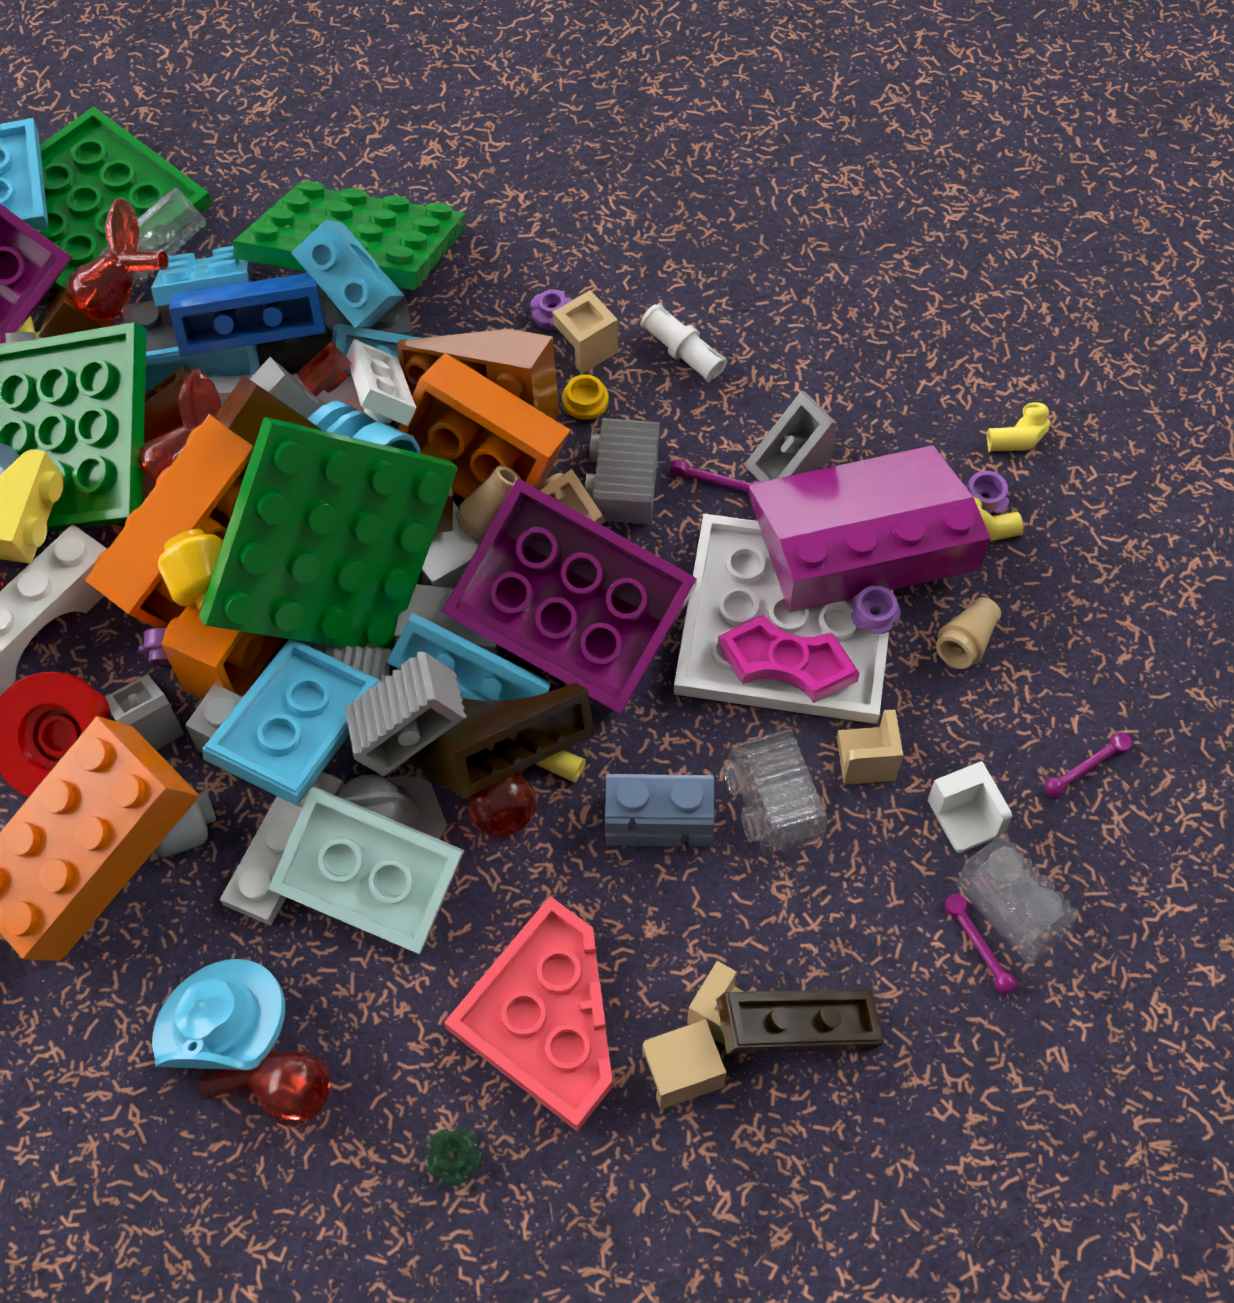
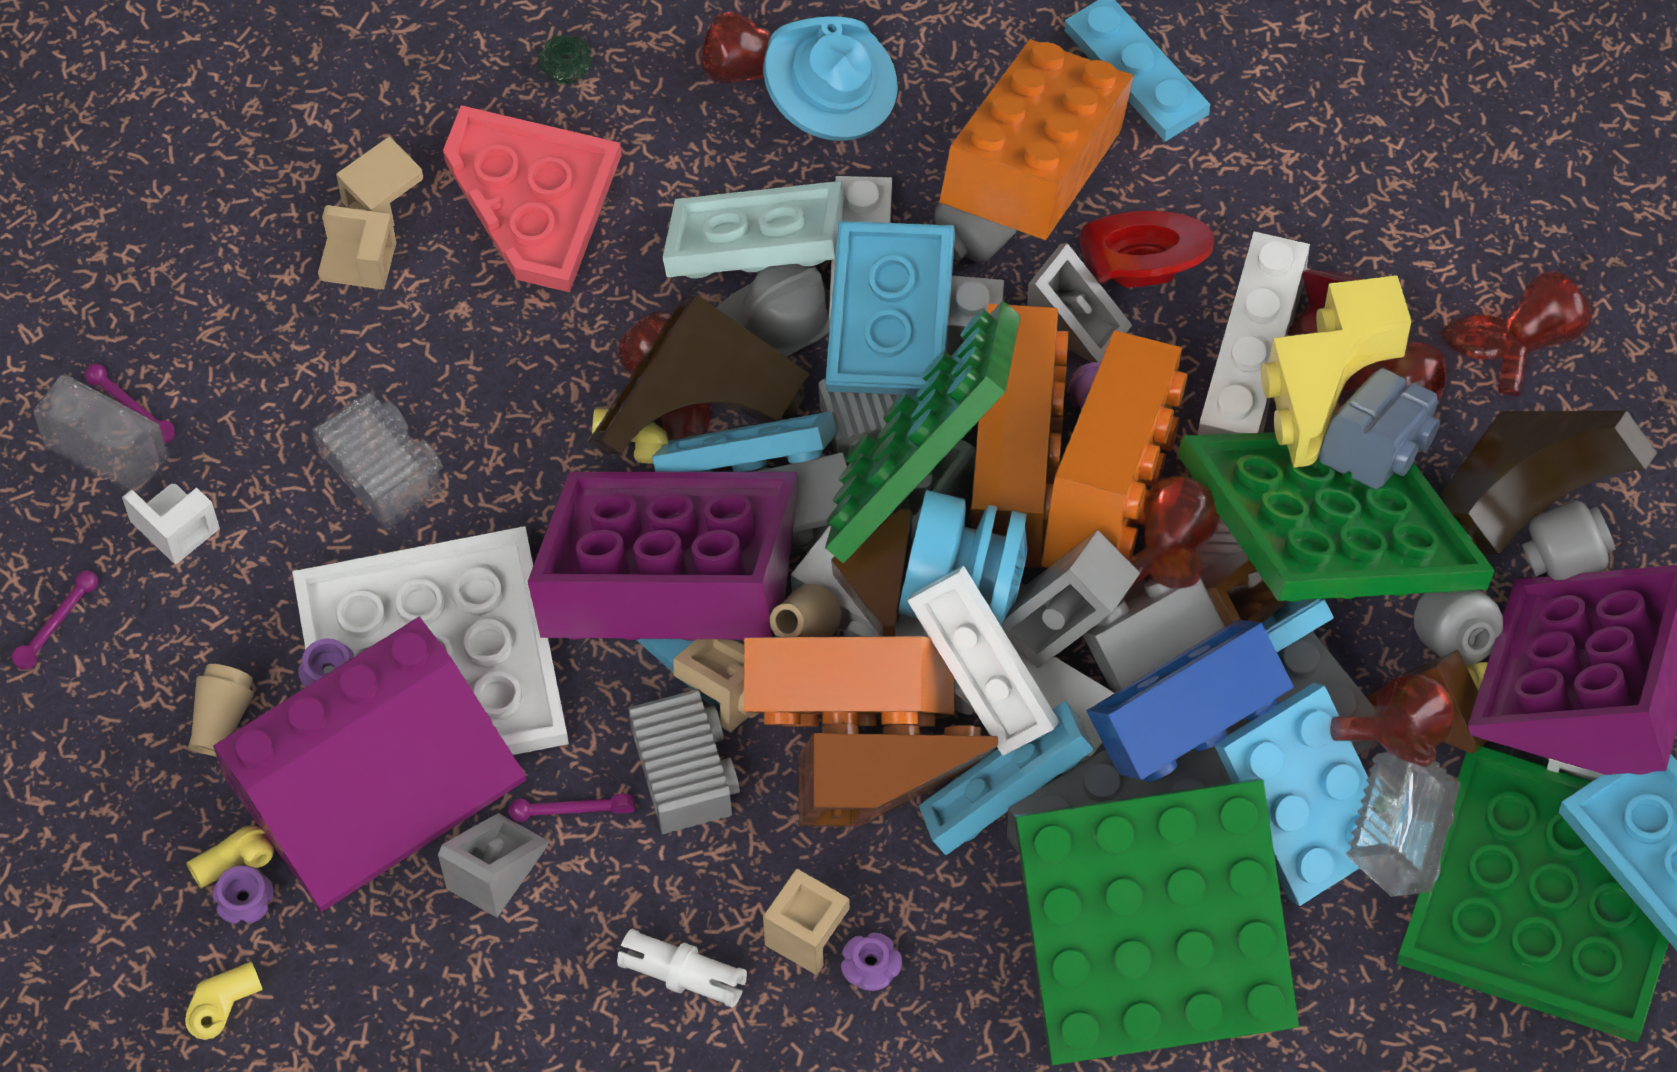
camera: 160 degrees right, 0 degrees up
(189, 565) = (1053, 363): yellow head -> none
(249, 405) = (1066, 510): reddish brown slope -> none
(325, 370) = (1064, 671): clear red plate -> none
(347, 274) = (1090, 769): medium azure brick -> none
(404, 713) = (769, 323): light grey brick -> none
(585, 397) = (774, 851): yellow plate -> none
(659, 810) = (491, 394): sand blue brick -> none
(799, 1021) = (282, 248): dark brown tile -> none
(810, 663) = (384, 588): dark pink tile -> none
(871, 753) = (292, 532): tan panel -> none

